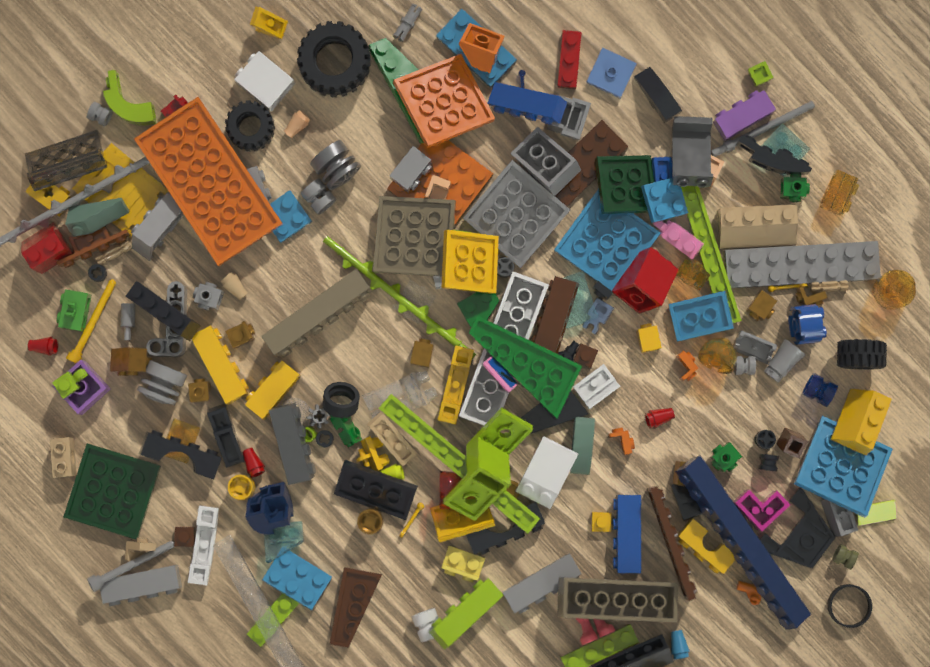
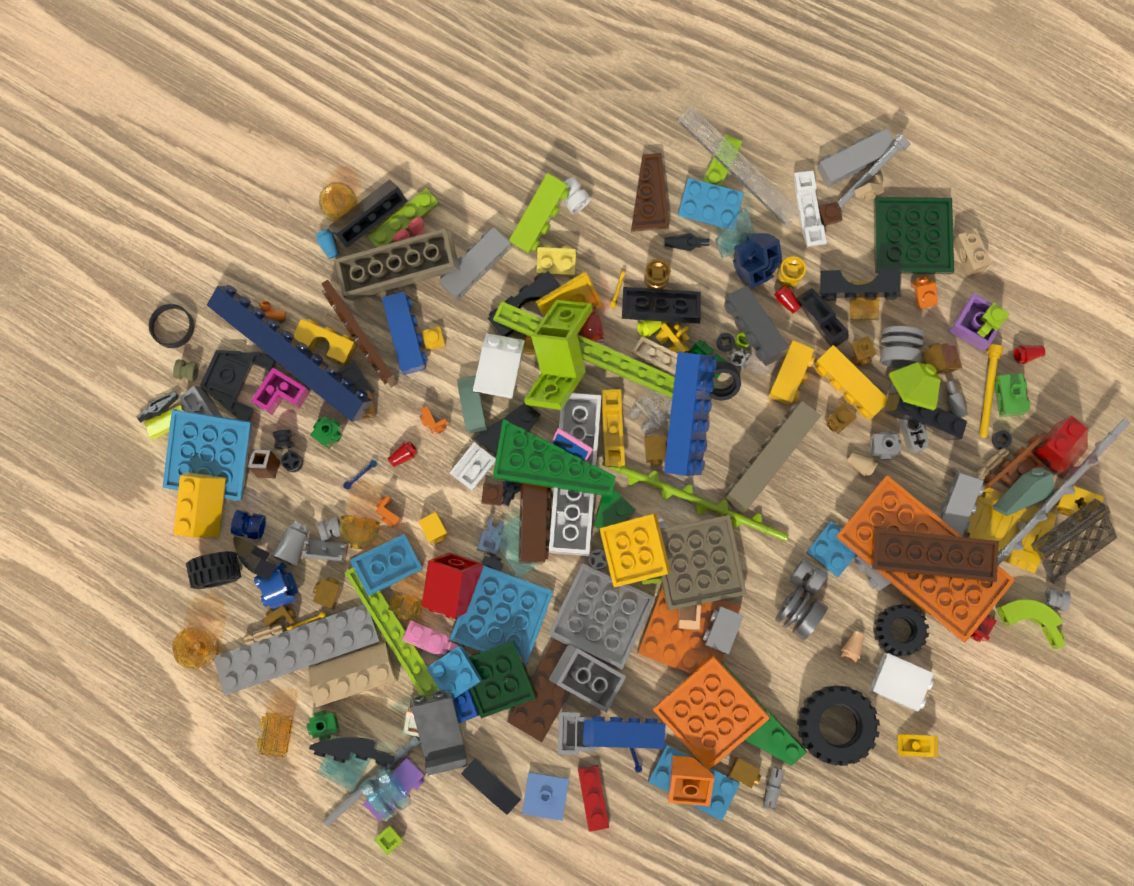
camera: 160 degrees right, 5 degrees down
(120, 432) = (925, 292): none -> orange bracket
(163, 337) = (917, 384): none -> lime slope
(199, 179) = (935, 555): none -> reddish brown plate
(332, 548) = (686, 242): none -> black piece
(381, 373) = (690, 414): none -> blue brick
(429, 42) = (744, 773): none -> pearl gold brick
(718, 403) = (347, 485): none -> clear blue hinge
(753, 108) = (385, 794): none -> clear light blue wheel
(822, 354) = (253, 558): none -> black slope
(880, 529) = (158, 406): none -> black piece

